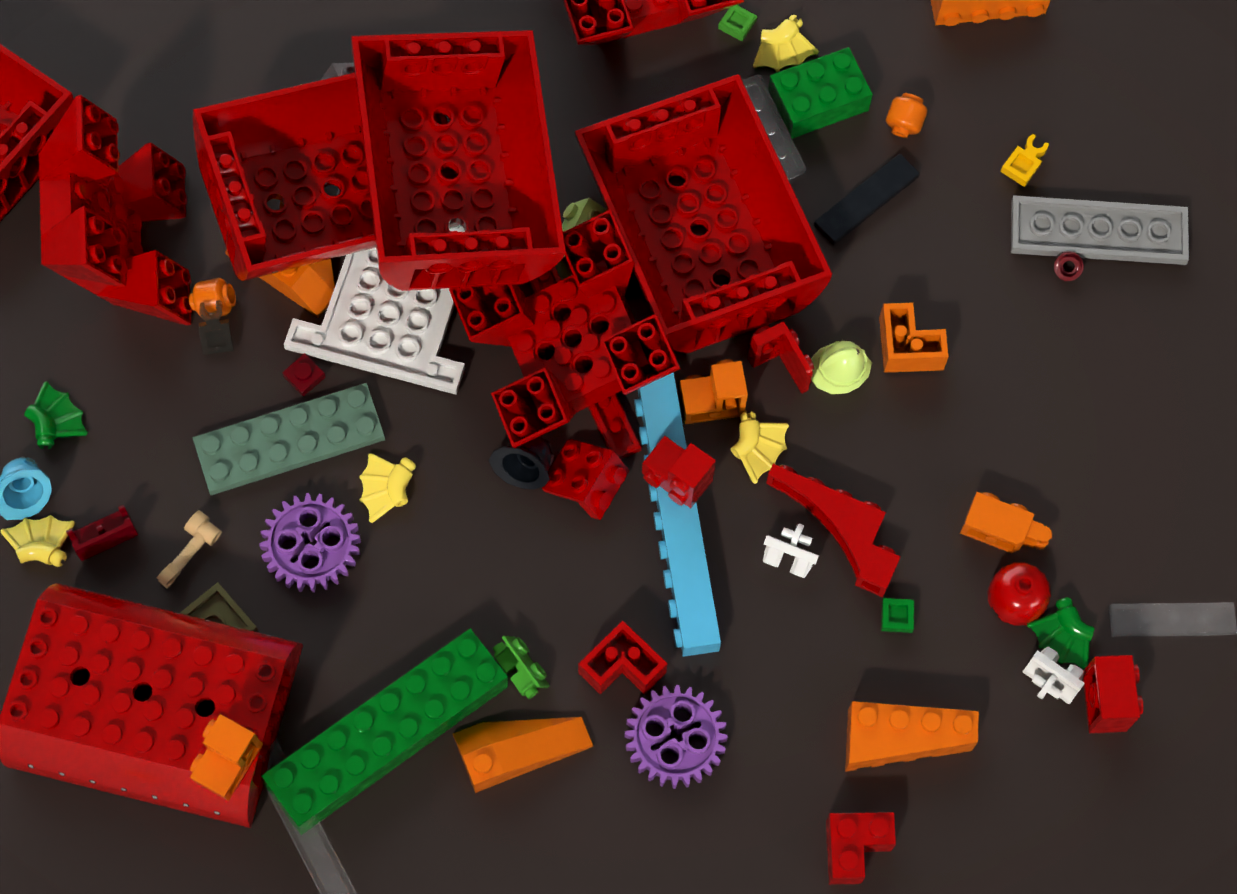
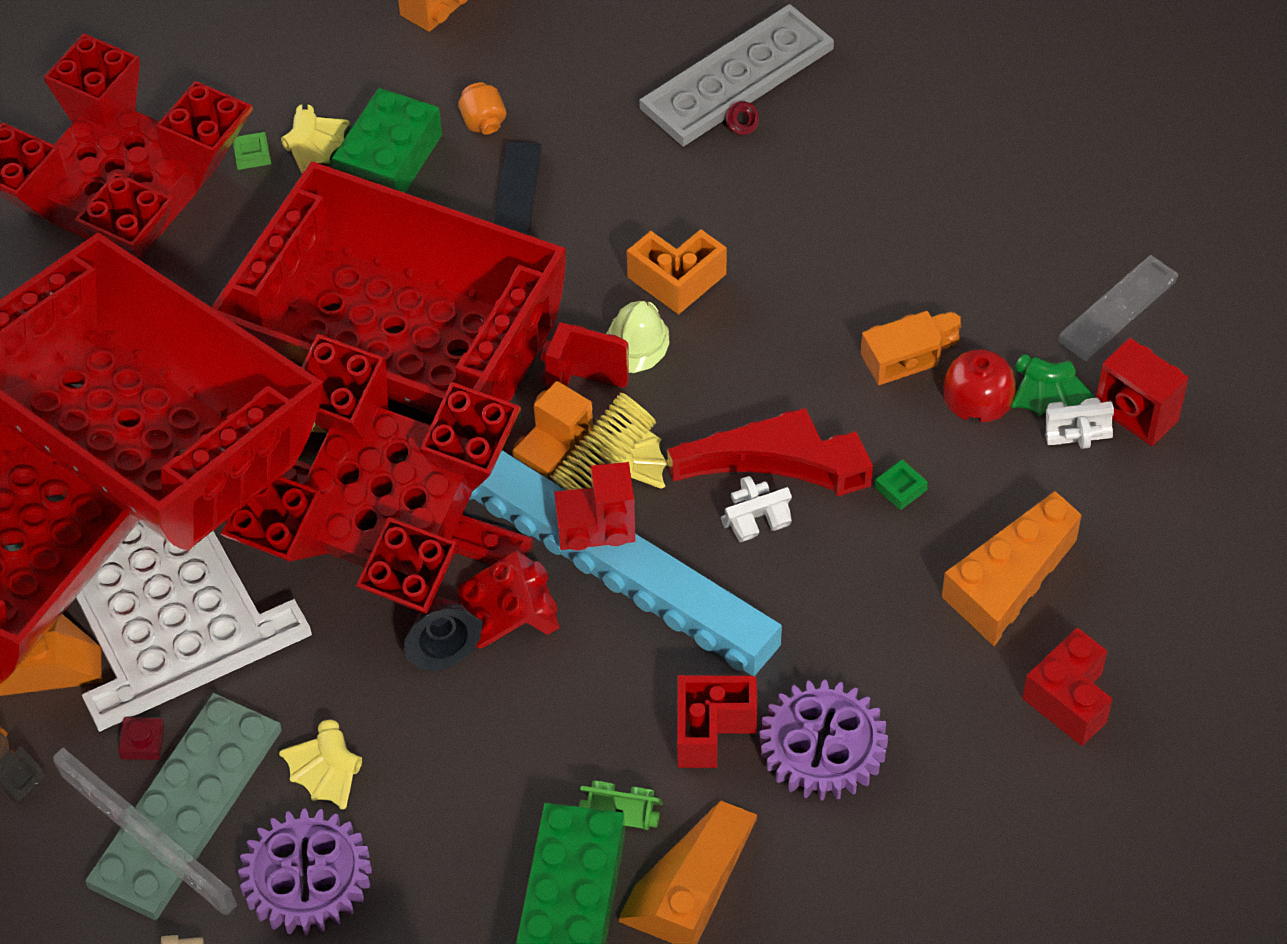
camera: 40 degrees left, 15 degrees down
(242, 439) = (145, 832): none -> clear tile
(770, 419) = (628, 408): none -> light yellow piece
(1024, 163) = (619, 71): yellow plate -> none

